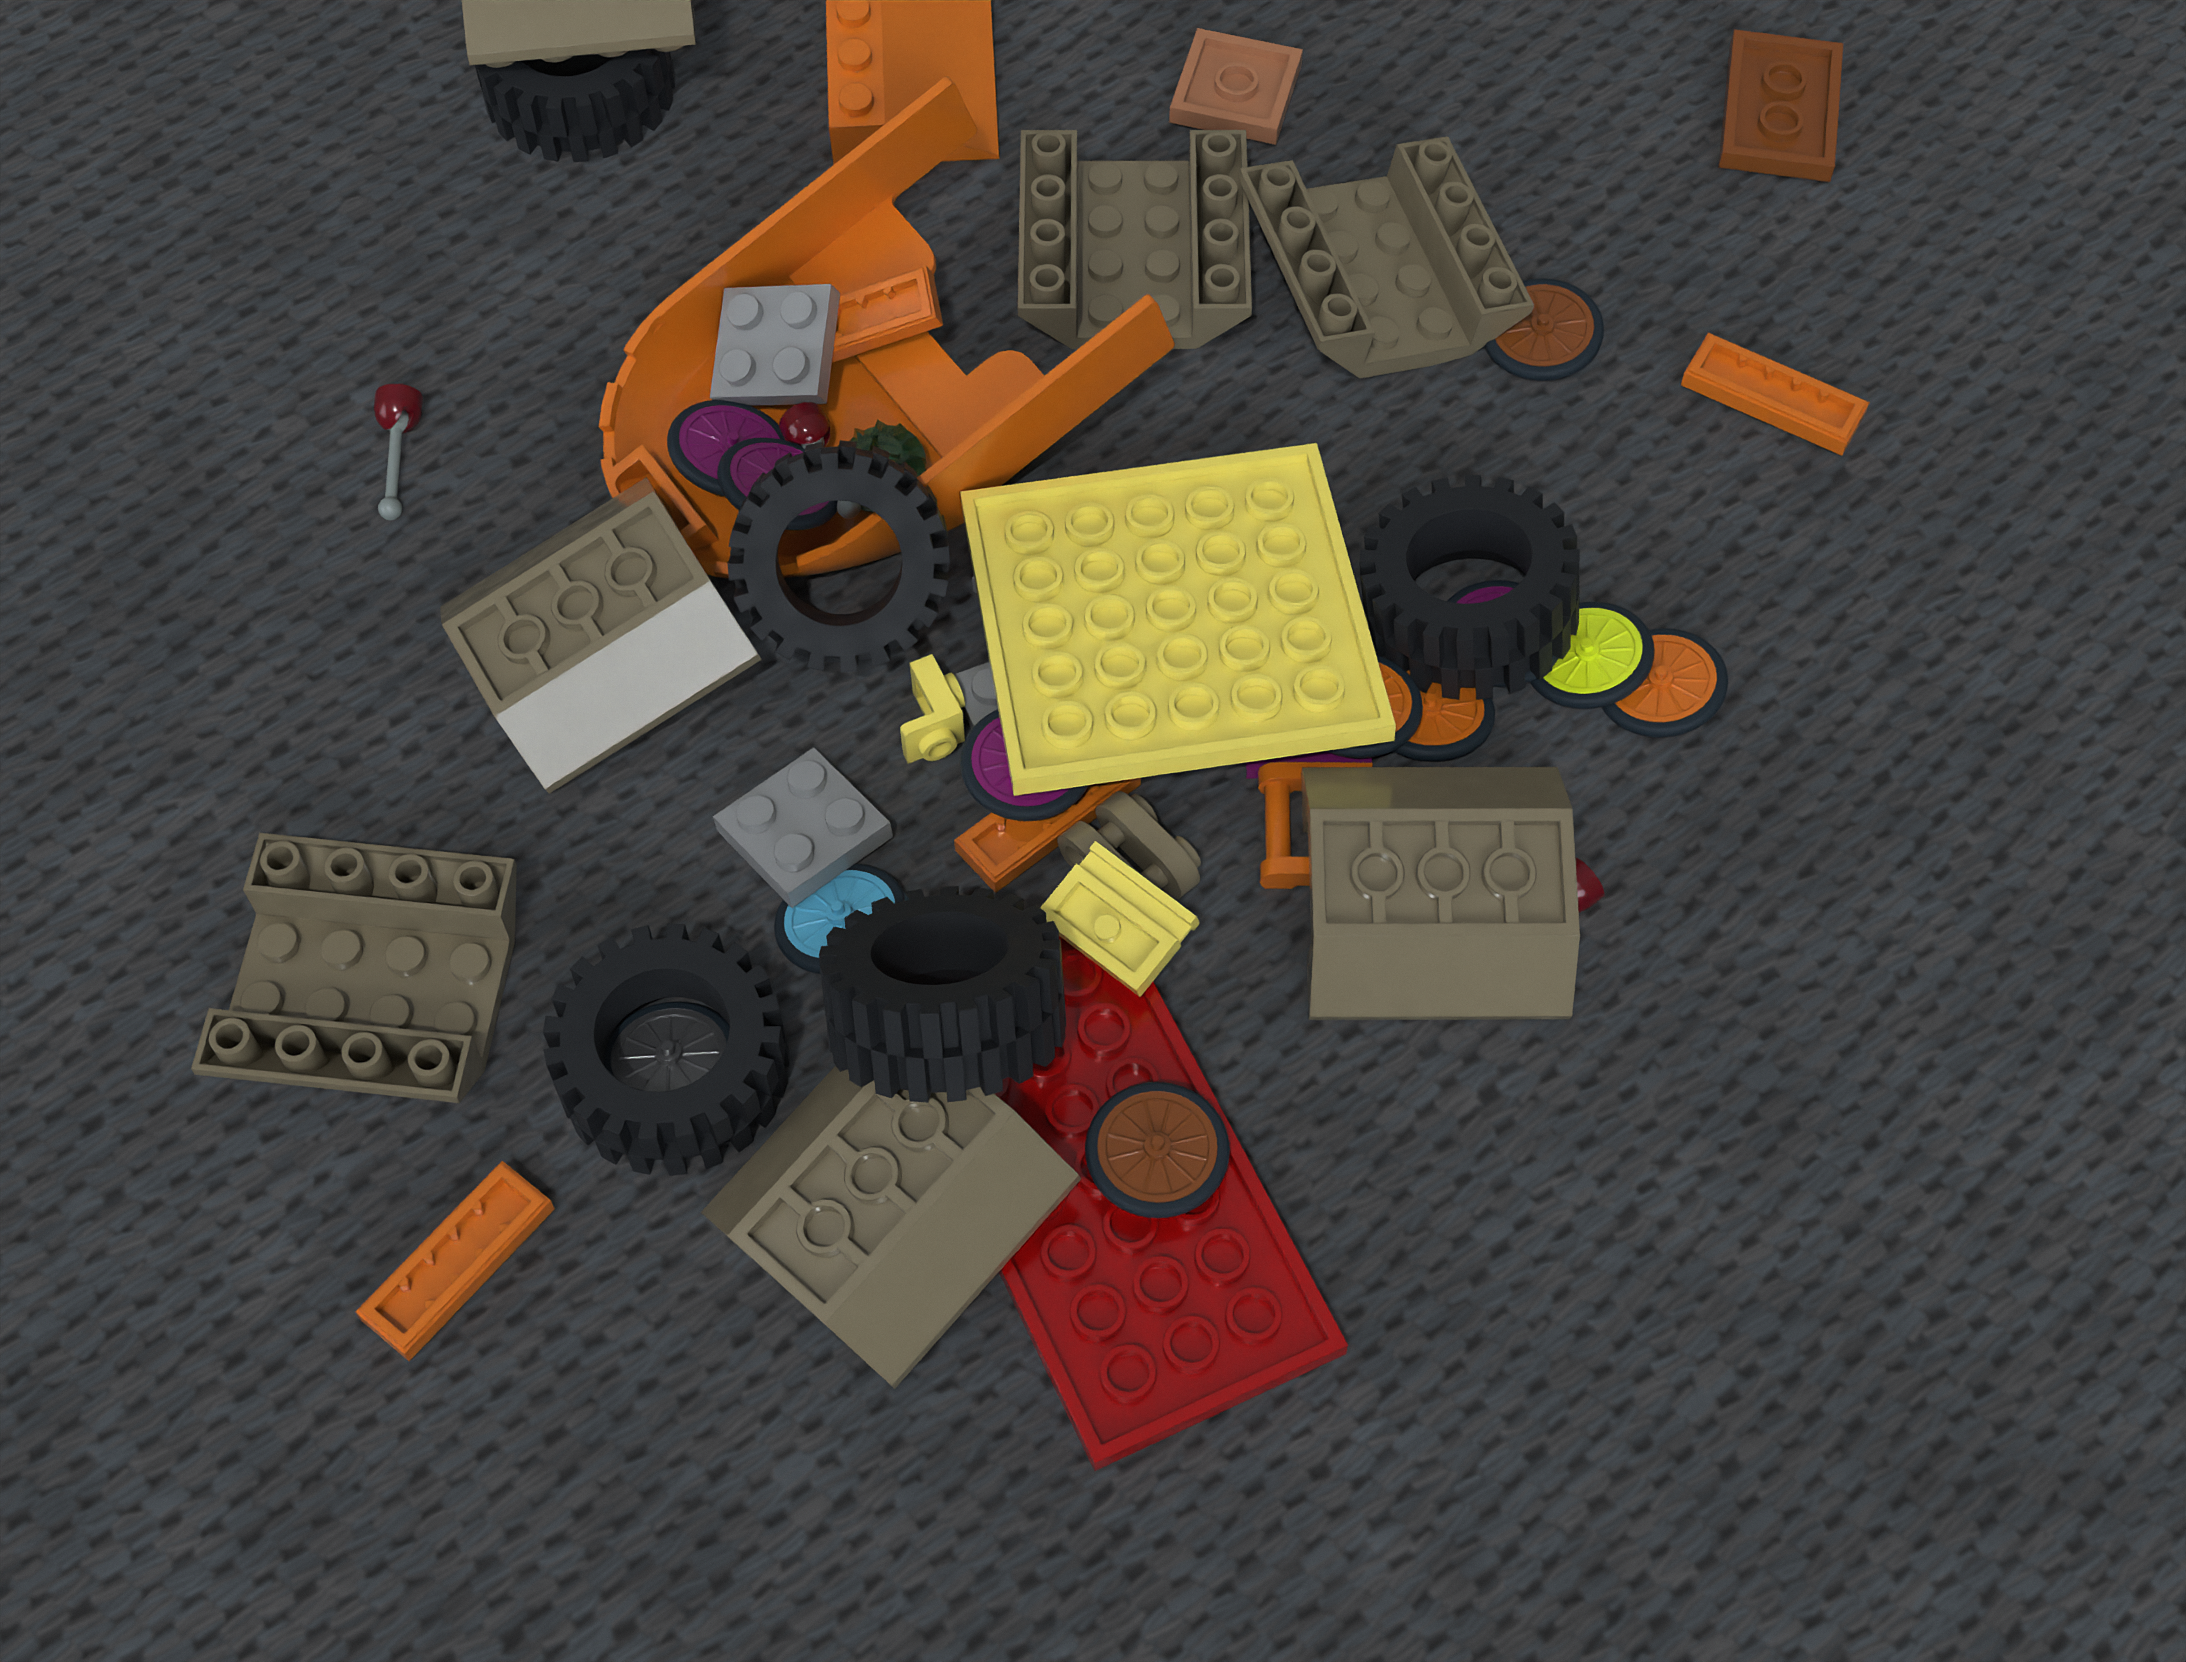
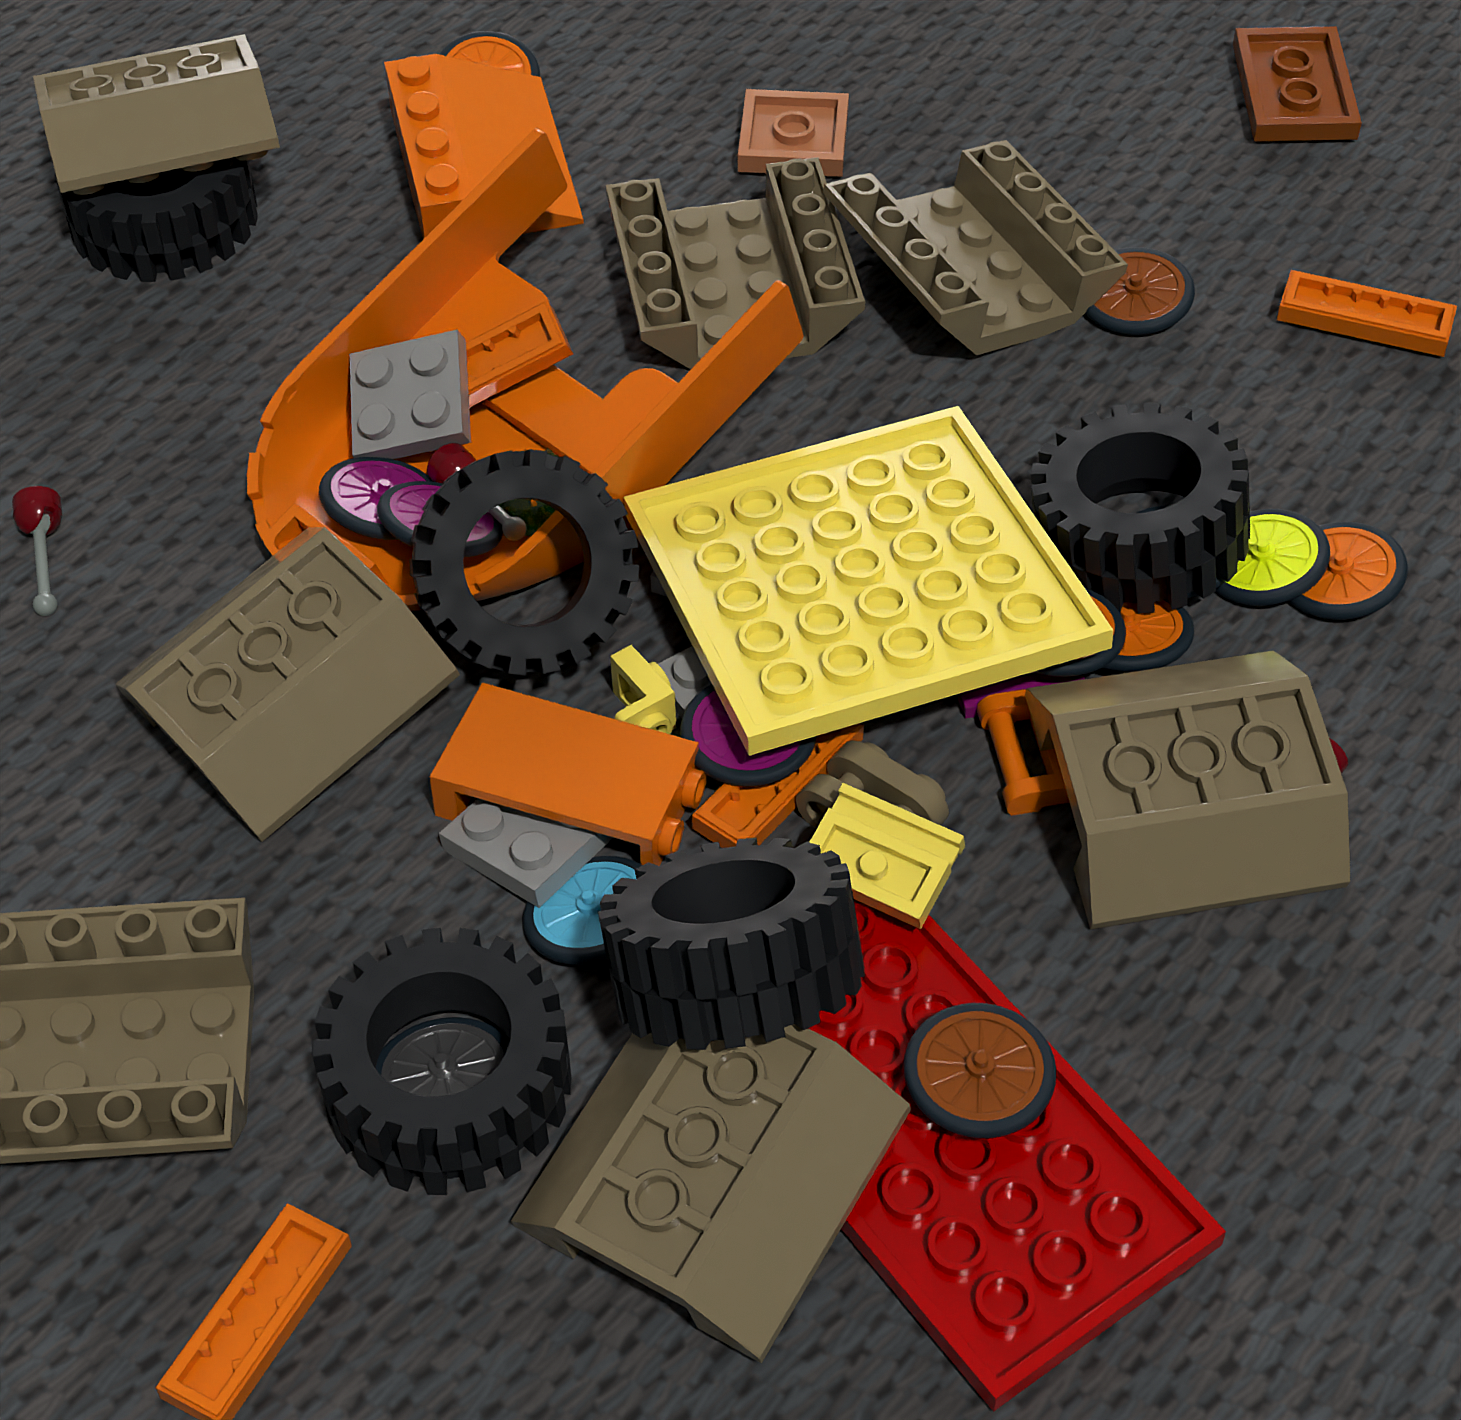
camera: 10 degrees left, 10 degrees down
(848, 776) = (570, 770): none -> orange panel

